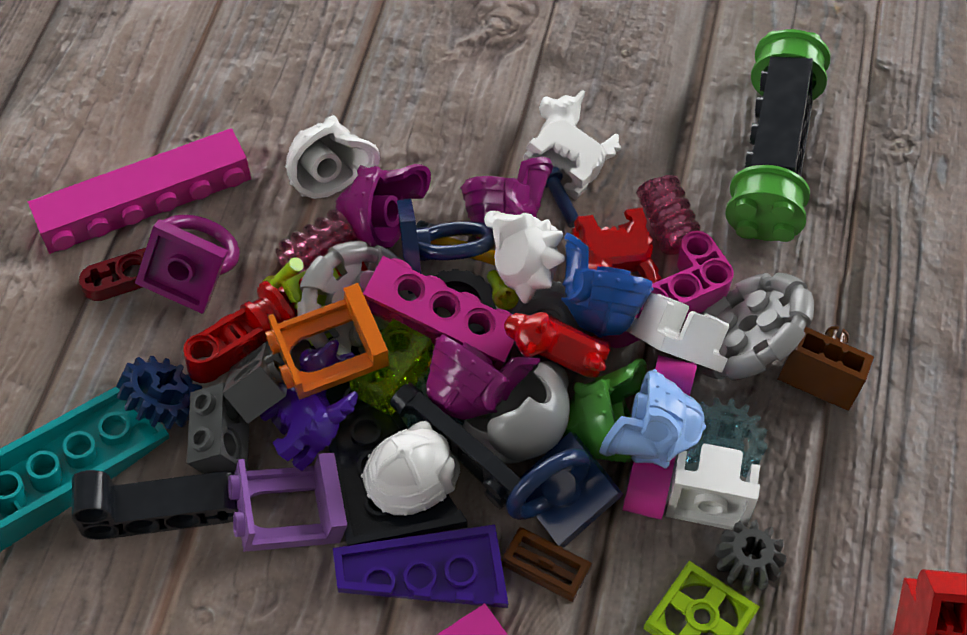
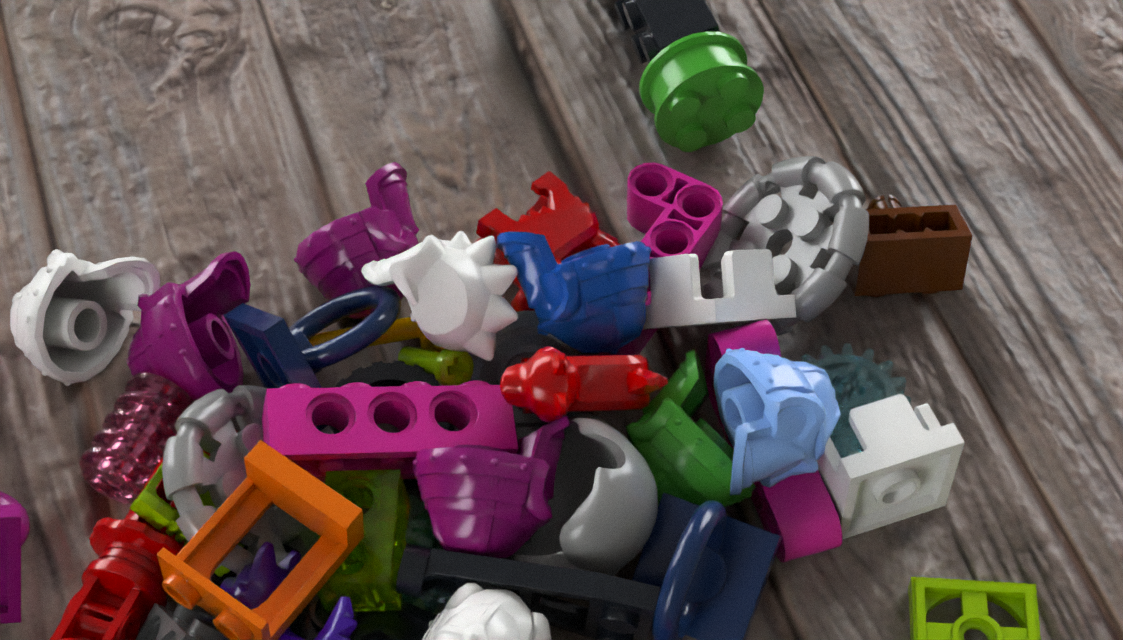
camera: 30 degrees left, 5 degrees down
(291, 269) = (121, 497): lime piece -> none
(561, 196) = (436, 216): dark blue piece -> none
(569, 146) = (377, 137): white animal -> none
(667, 211) = (582, 162): clear pink piece -> none
(756, 543) = (981, 527): dark grey gear -> none

